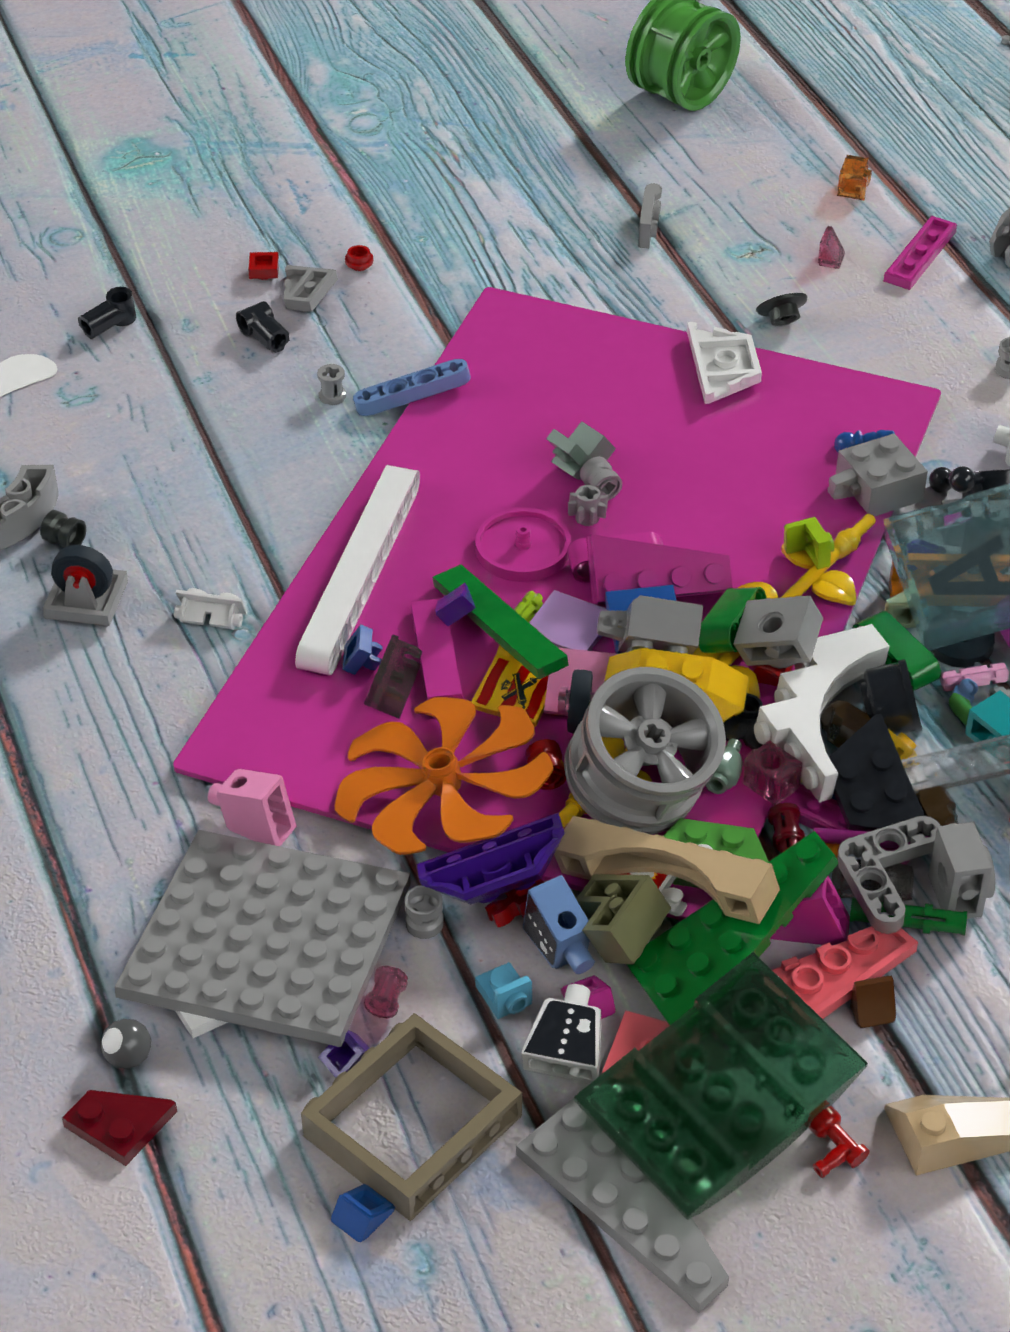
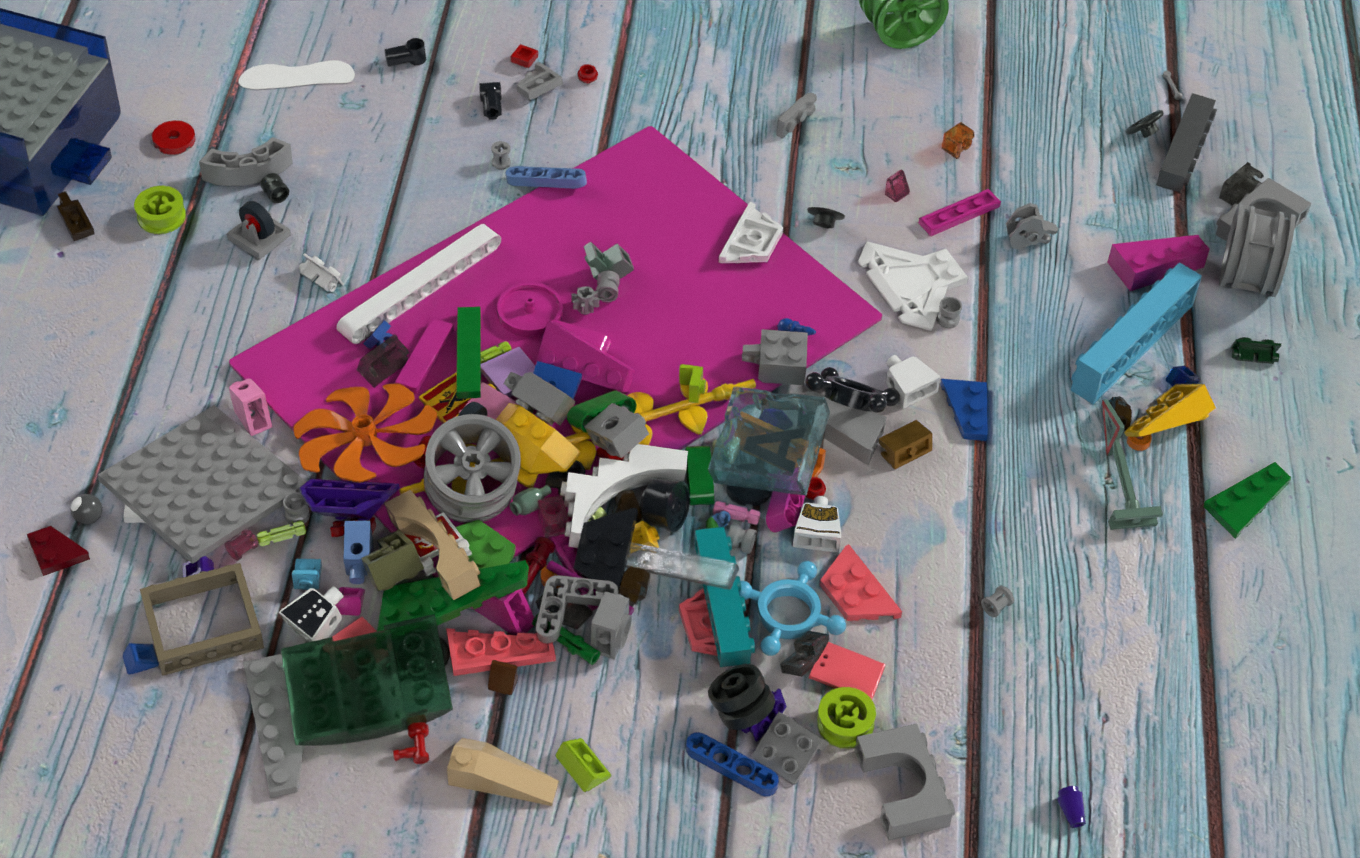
camera: 25 degrees right, 5 degrees up
(427, 952) = (281, 533): none -> lime axle
(455, 605) = (449, 331): dark purple slope -> none
(937, 343) = (912, 281): none -> white plate

